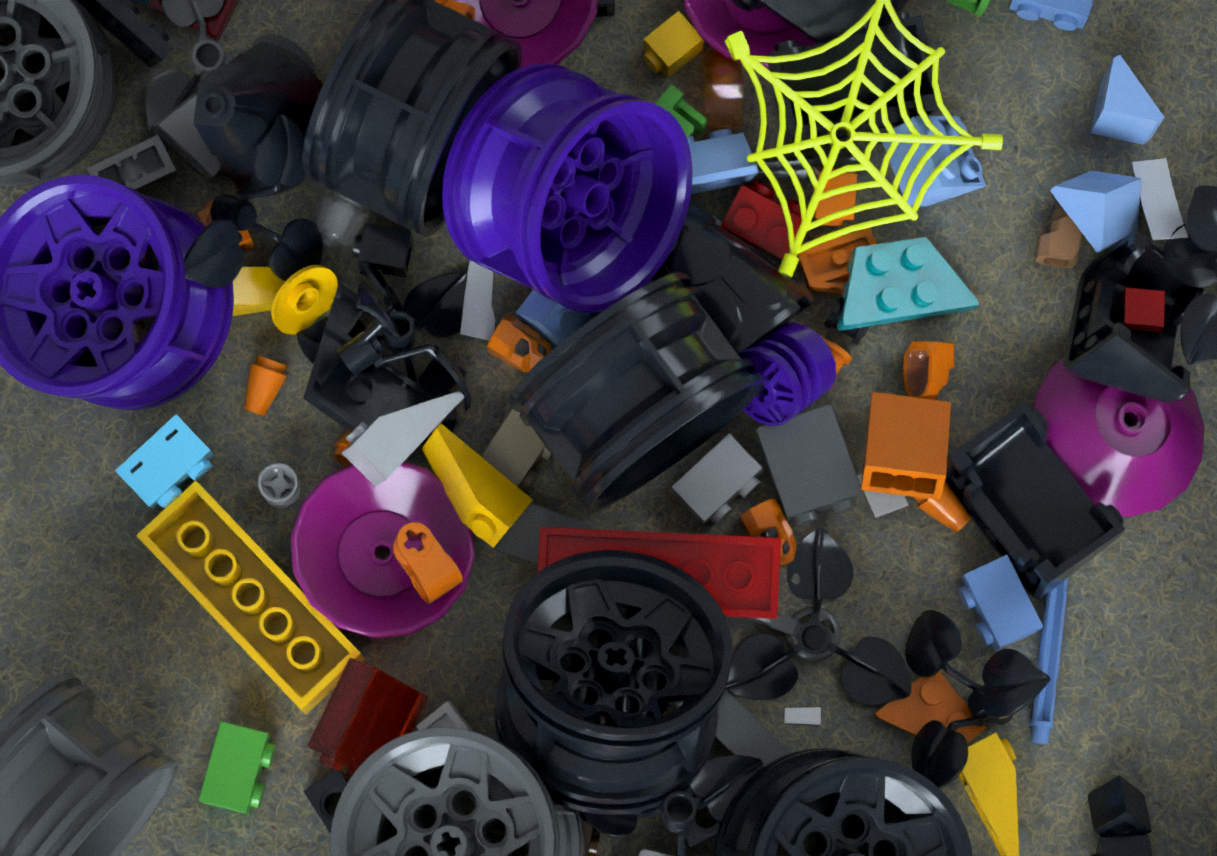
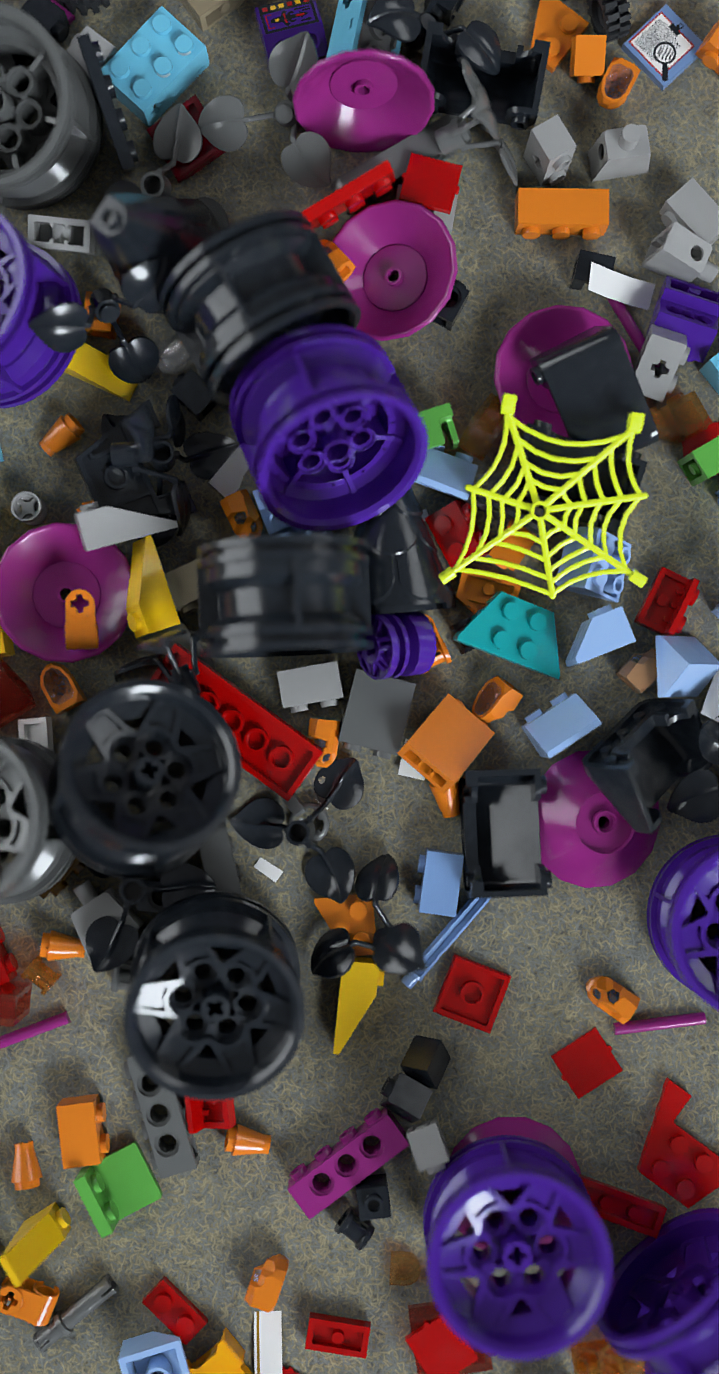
camera: 30 degrees right, 10 degrees up
(303, 298) = (118, 393): yellow dish -> none
(443, 659) = (61, 688): none -> rock
(542, 512) = (179, 675): none -> black plant
(671, 45) = (472, 375): yellow brick -> none
(991, 225) = (600, 634): none -> light blue slope
(1013, 350) = (560, 724): none -> light blue slope
(1038, 151) = (667, 602): none -> red bracket
(1117, 705) = (472, 993): none -> red tile
(1143, 309) = (662, 753): red tile -> none

